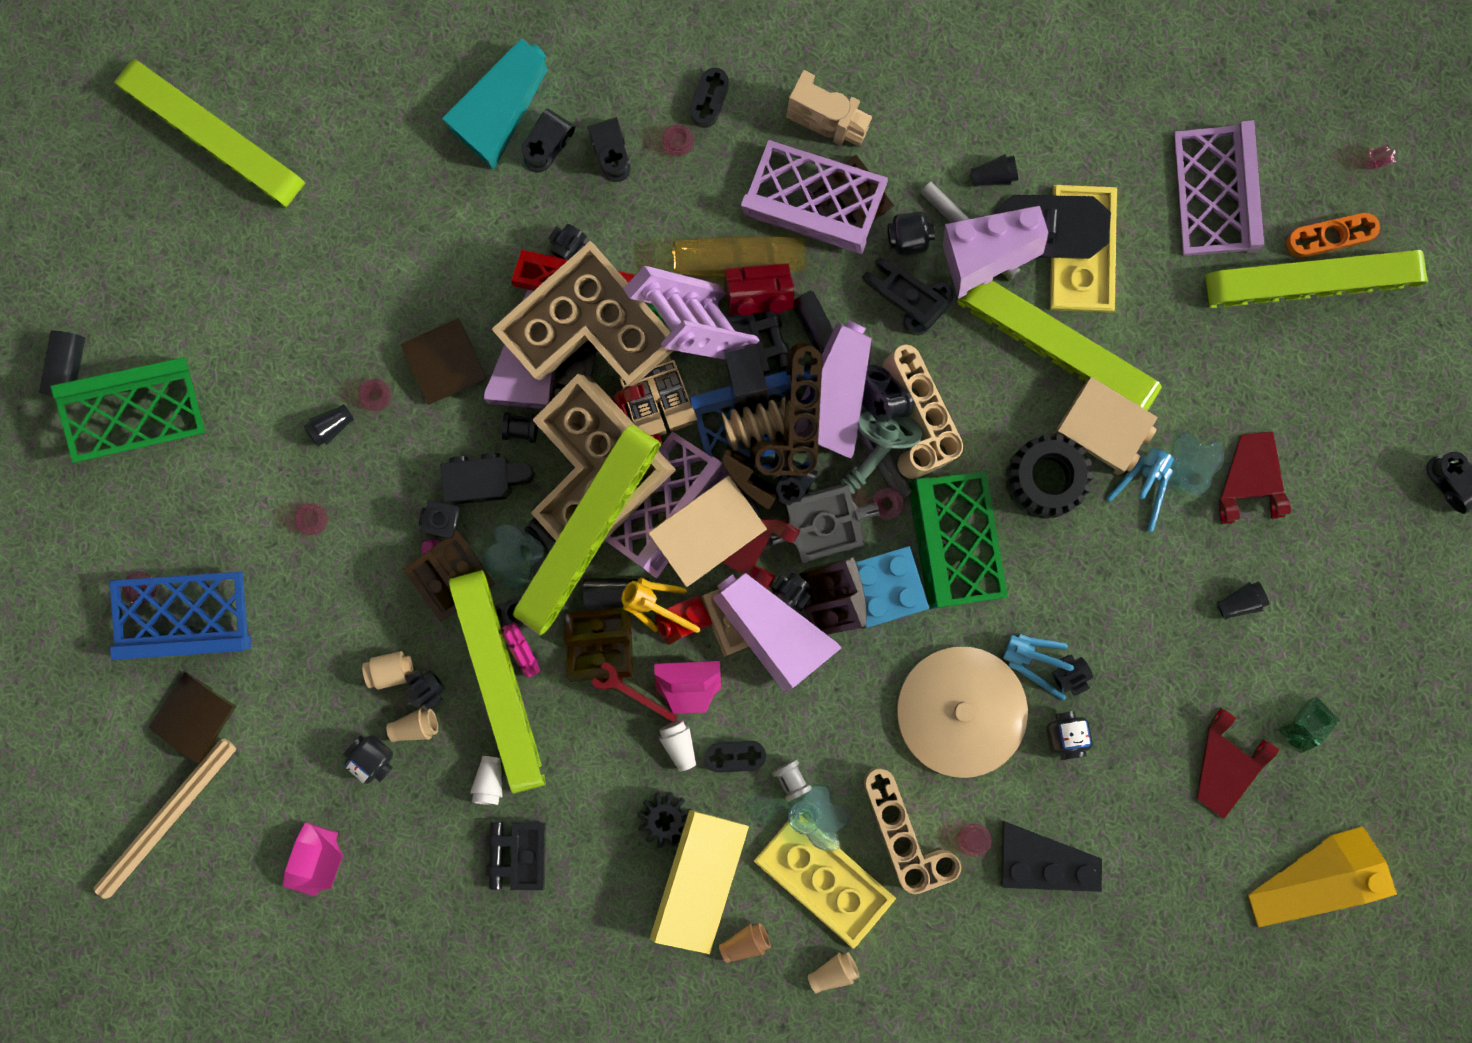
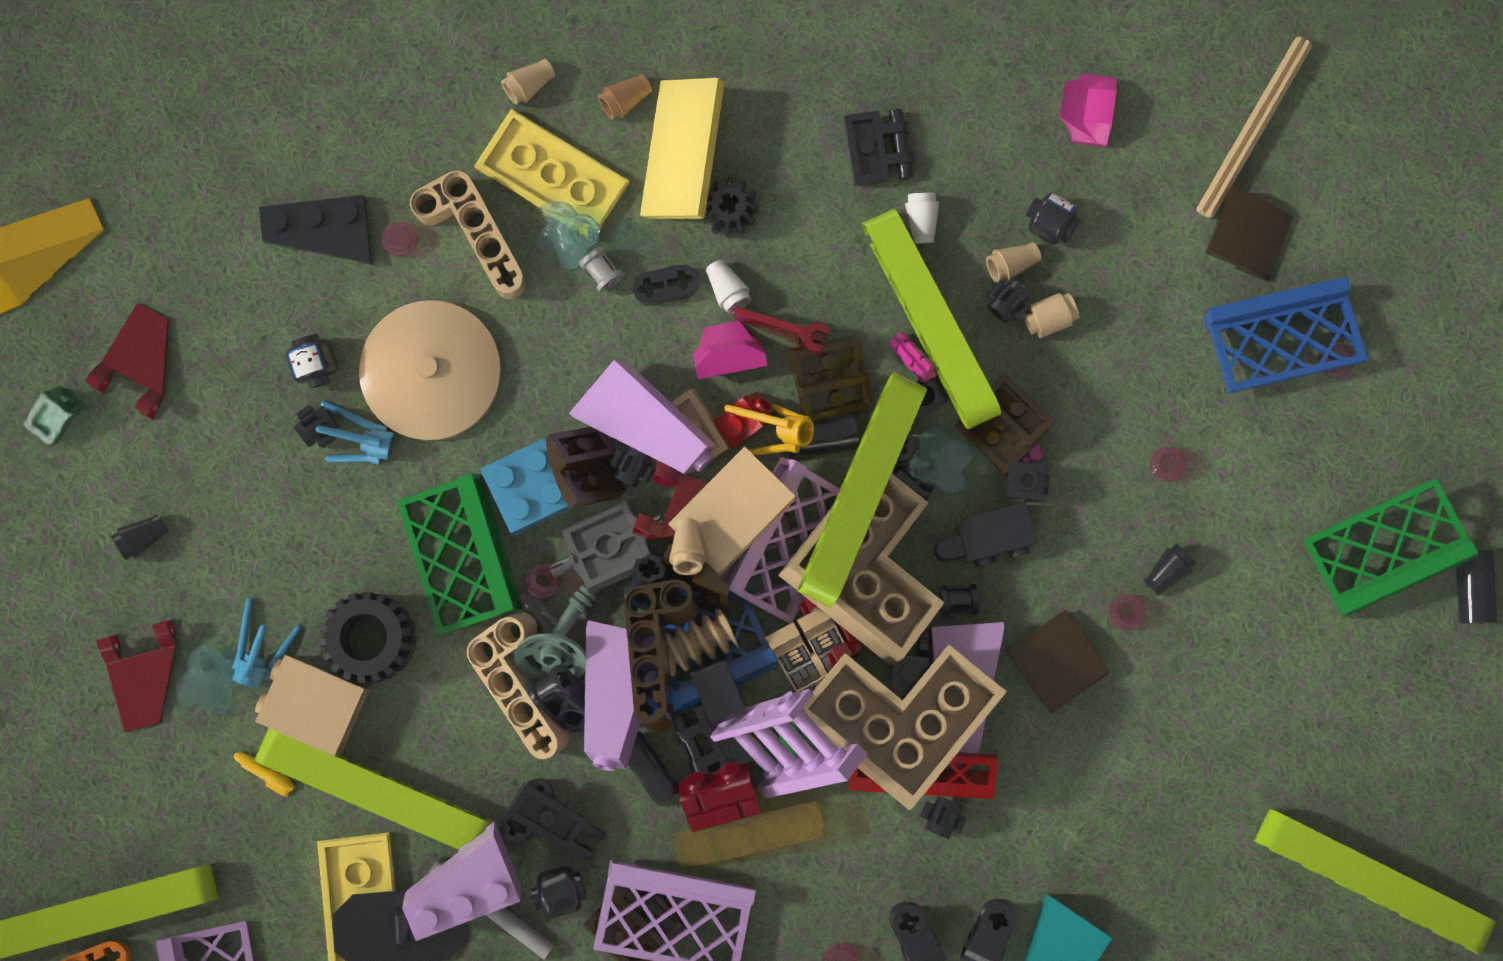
camera: 170 degrees right, 0 degrees up
(753, 498) = (687, 549): none -> tan cone
(1147, 367) = (274, 780): none -> yellow piece

